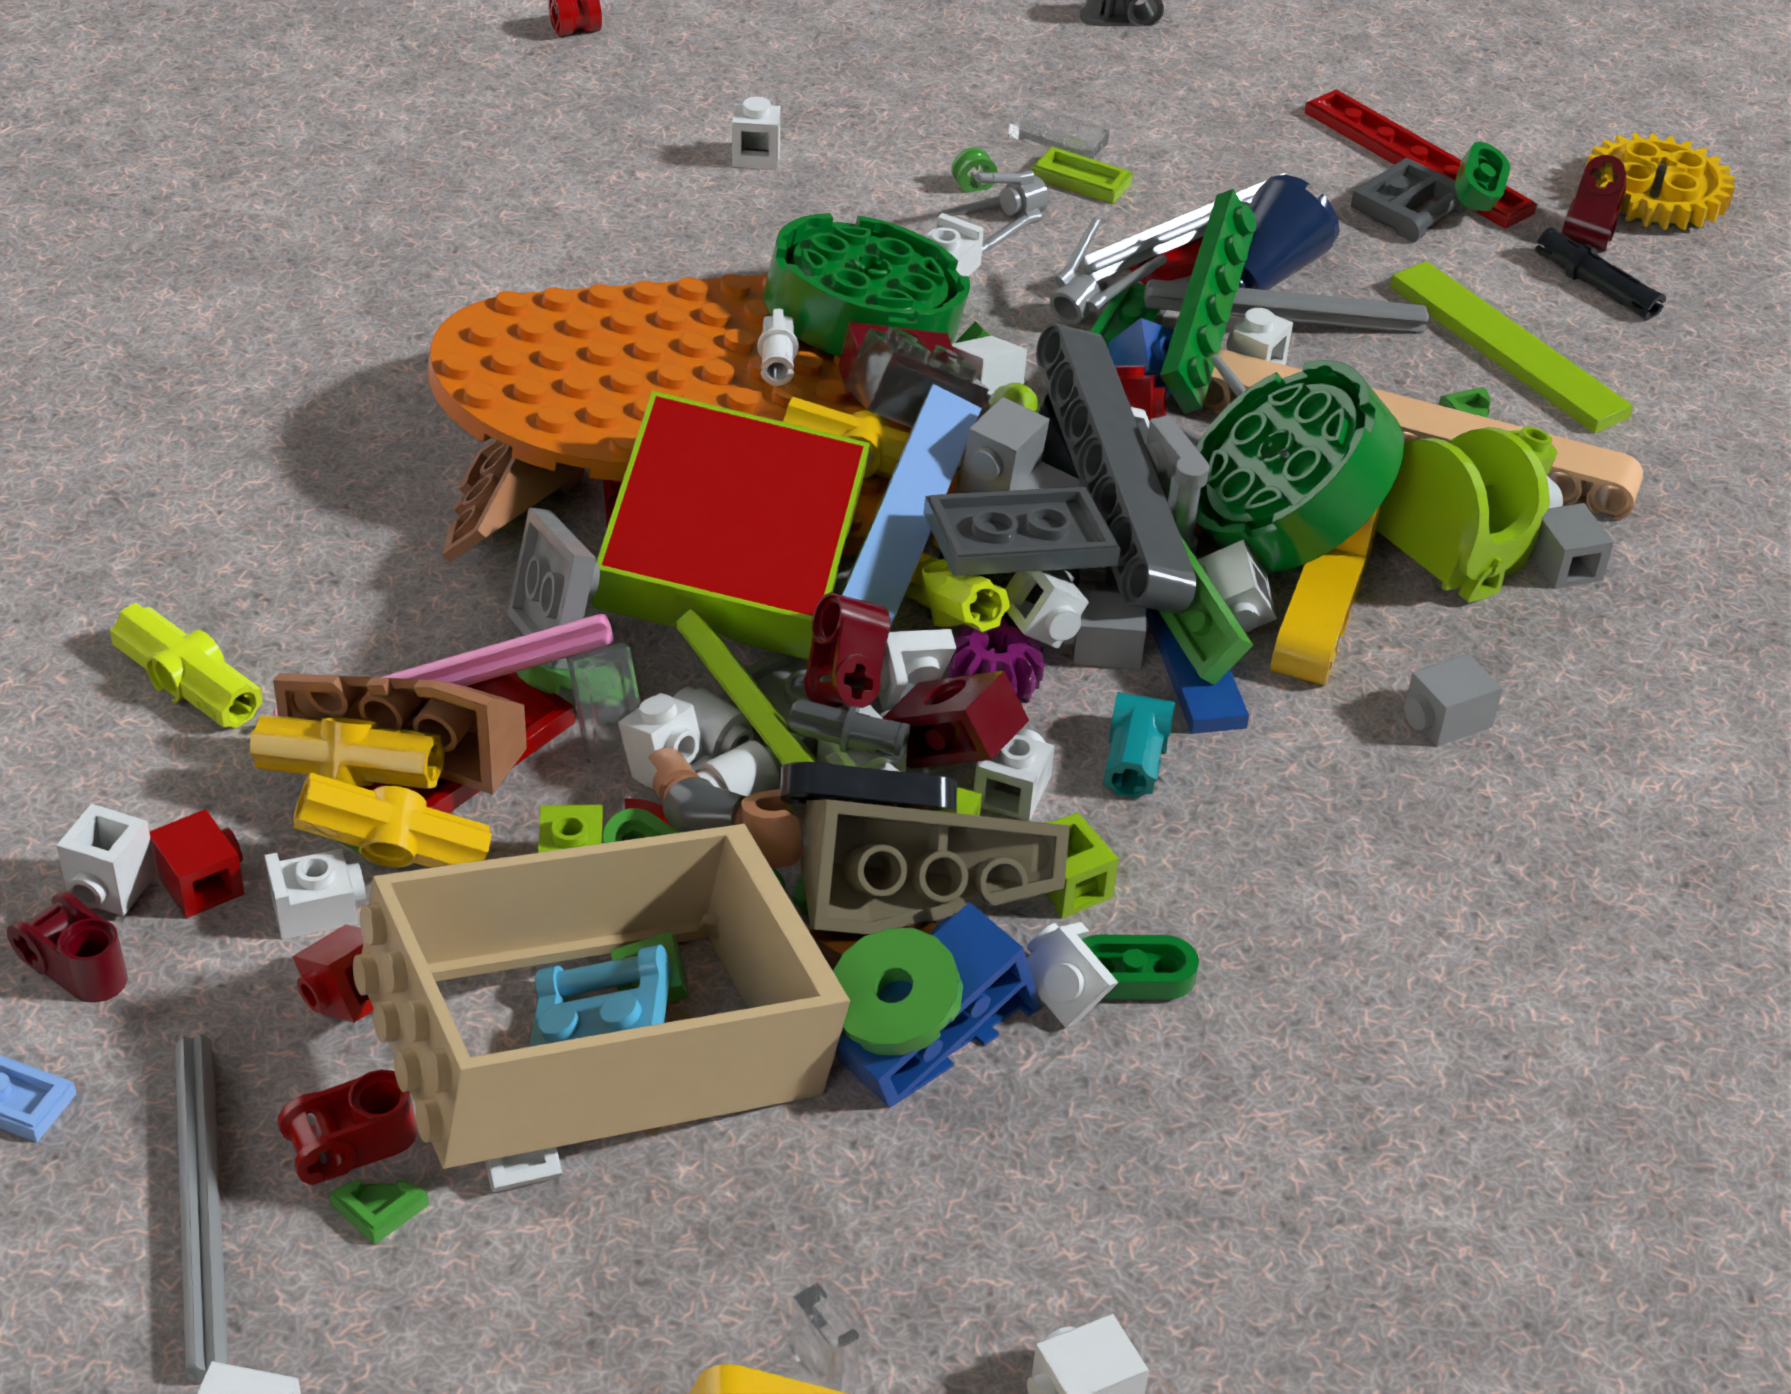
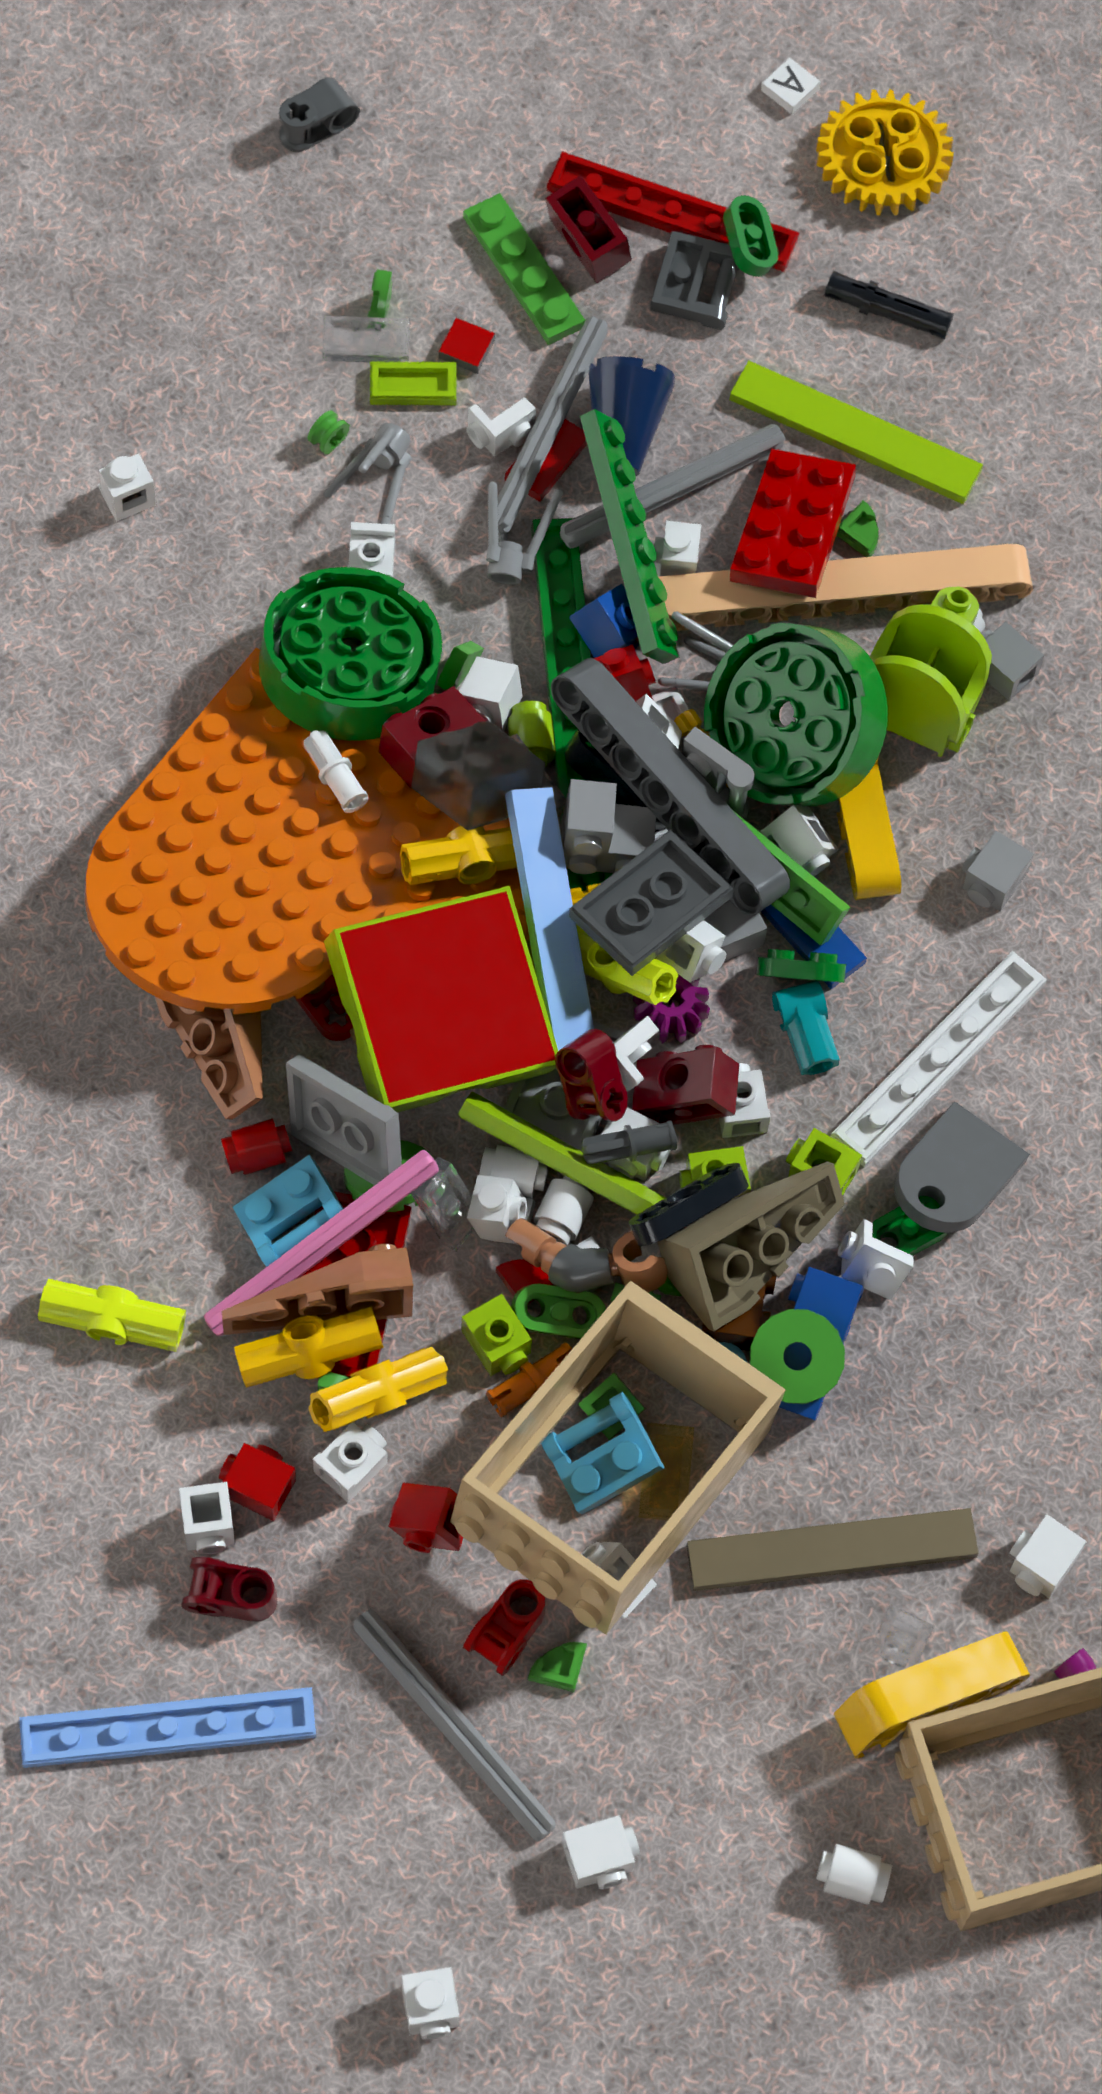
camera: 30 degrees left, 25 degrees up
(422, 646) = (284, 1204): none -> medium azure plate
(457, 600) = (256, 1147): none -> red brick
(814, 1245) = (832, 1549): none -> dark tan tile
(1099, 106) = (382, 294): none -> bright green tile
(1136, 215) = (504, 430): none -> white bracket
(1149, 677) = (820, 967): none -> green plate
(1153, 169) = (466, 345): none -> red tile
(1228, 933) = (960, 1167): none -> dark grey tile
(1243, 138) = (524, 268): none -> bright green plate
(1279, 836) = (939, 1057): none -> white tile
(1323, 126) = (588, 229): none -> dark red brick
(1406, 360) = (793, 523): none -> red plate
(1589, 122) = (790, 86): none -> white tile
(1595, 209) = (855, 230): dark red piece -> none

